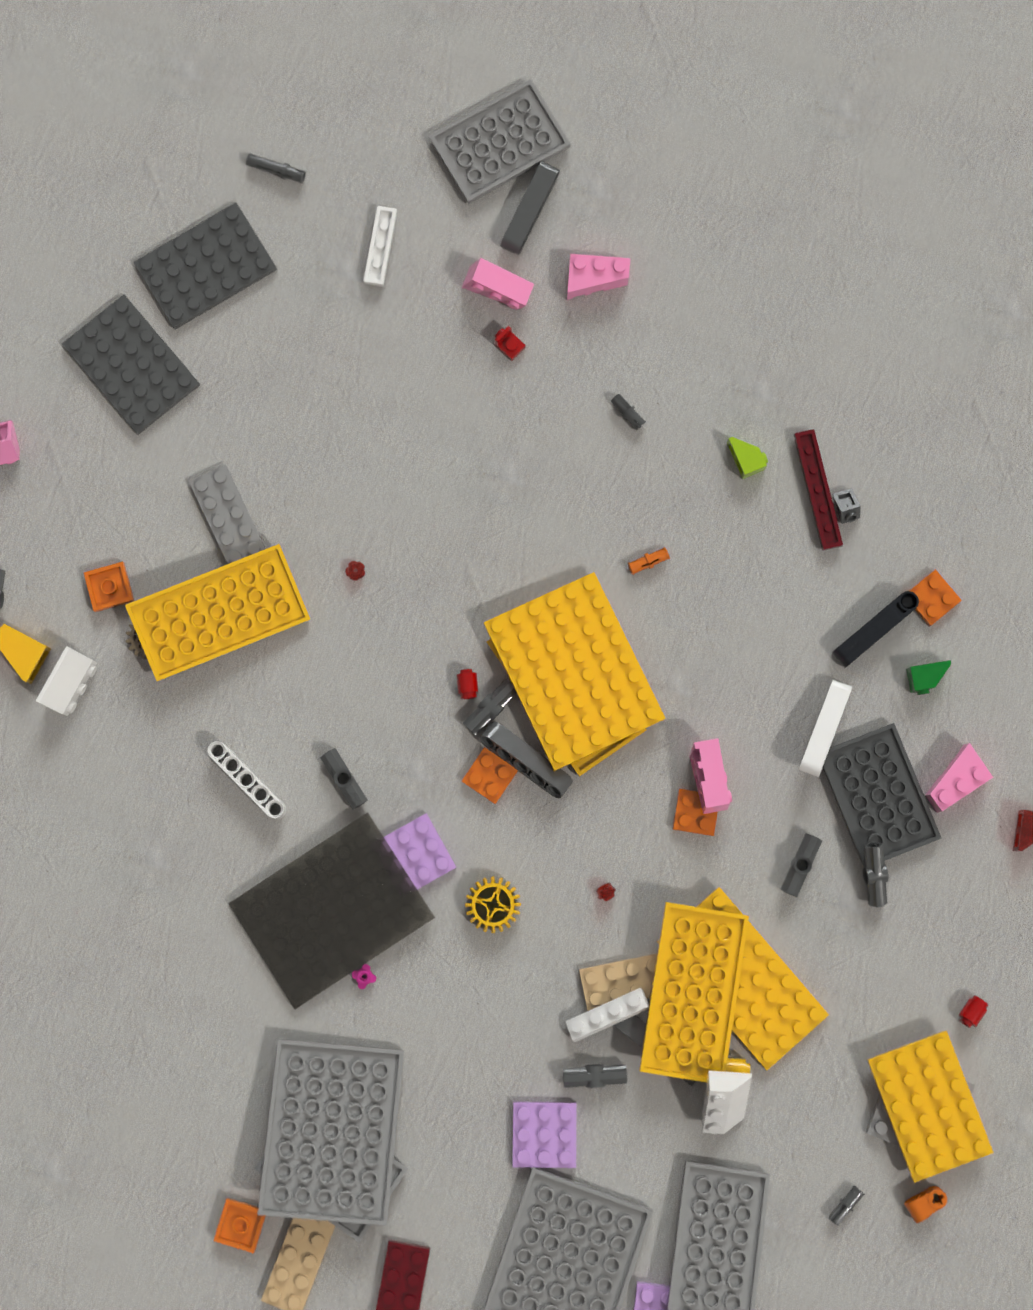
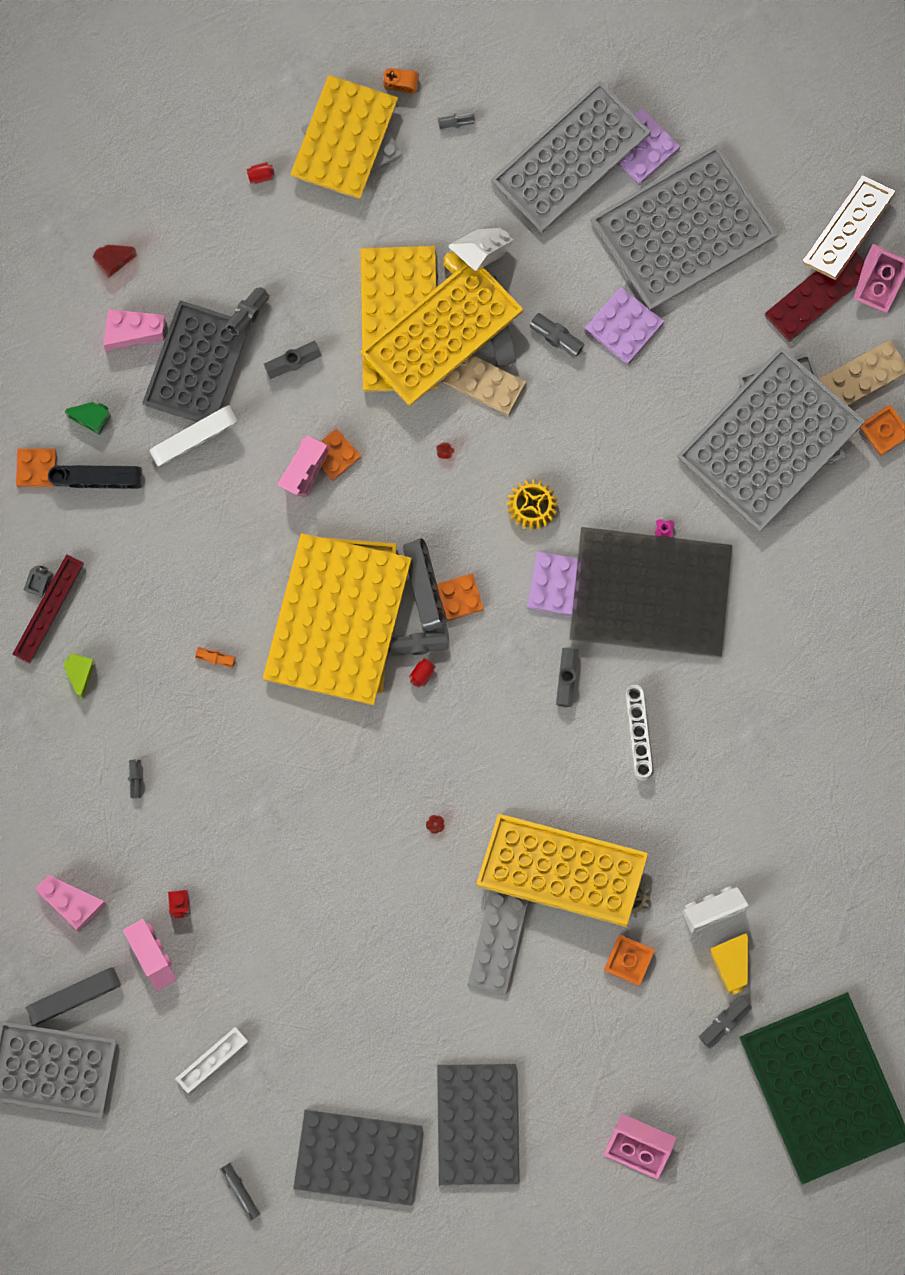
camera: 140 degrees left, 5 degrees down
(607, 1014) = (514, 366): white plate -> none

